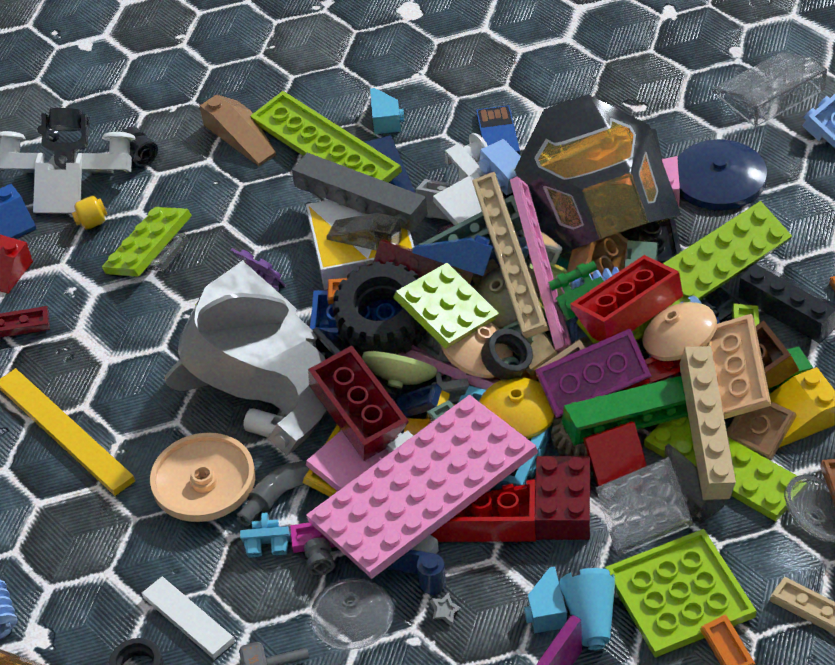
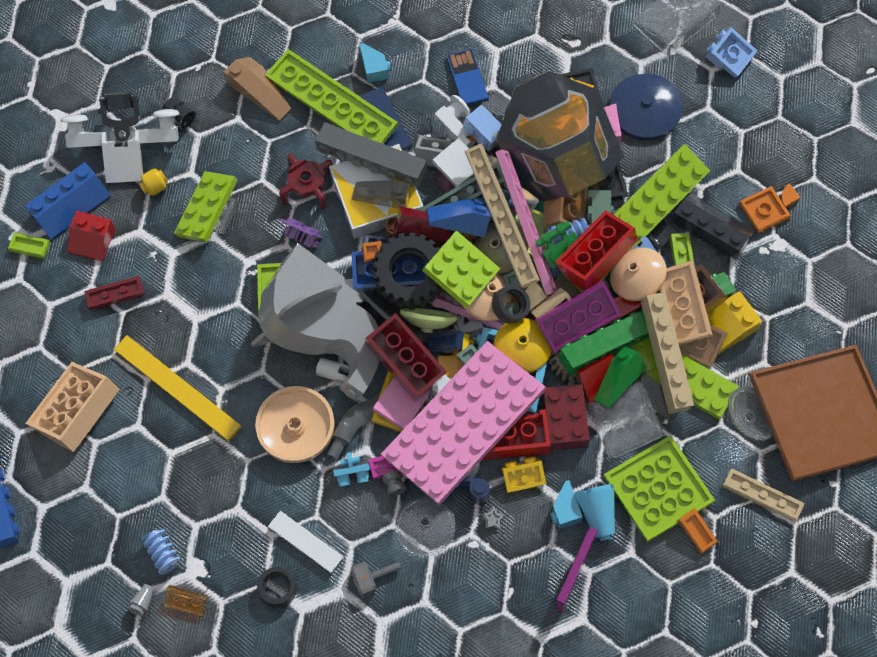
camera: 10 degrees left, 20 degrees up
(273, 226) = (308, 187): none -> dark red plate
(495, 560) = (523, 474): none -> yellow bracket
(642, 446) = (620, 375): none -> green slope

